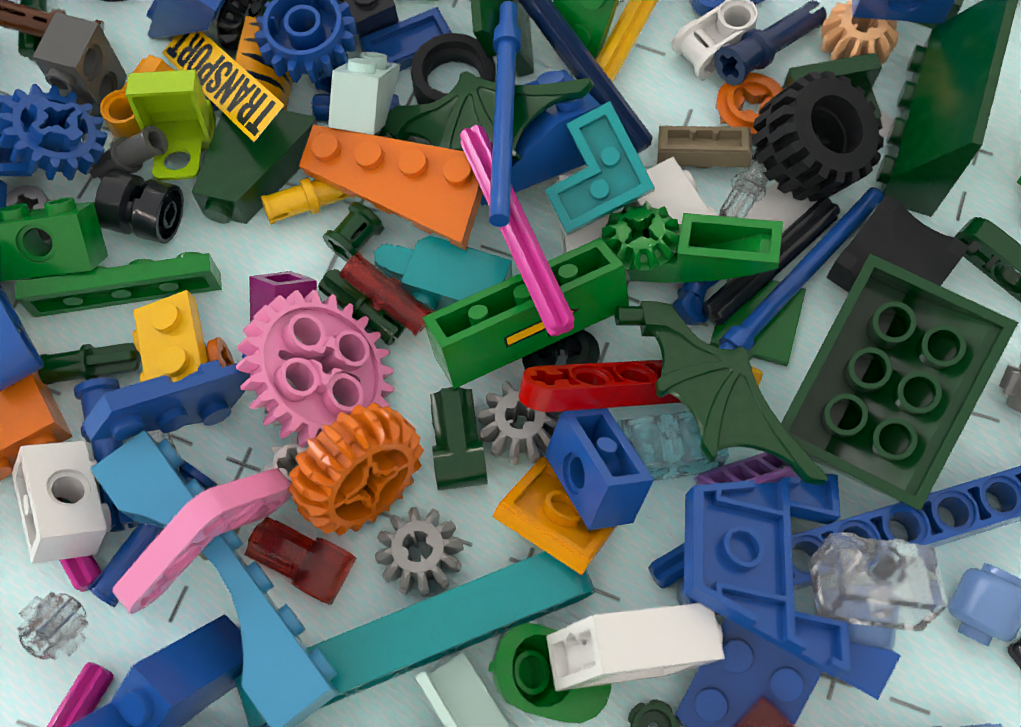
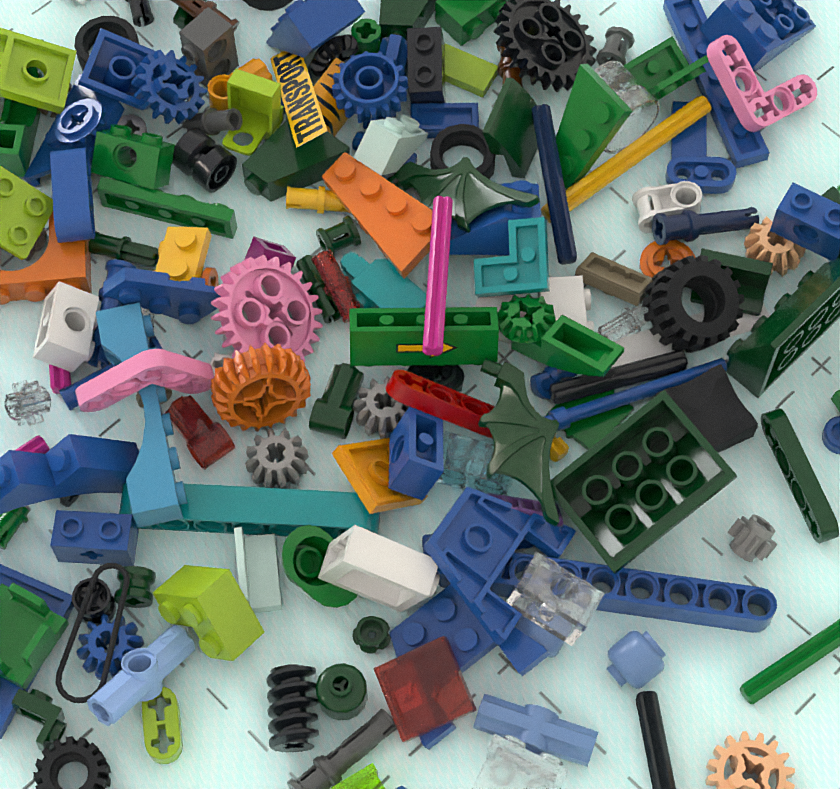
camera: 25 degrees right, 5 degrees down
(506, 45) = (501, 150): blue bar -> none

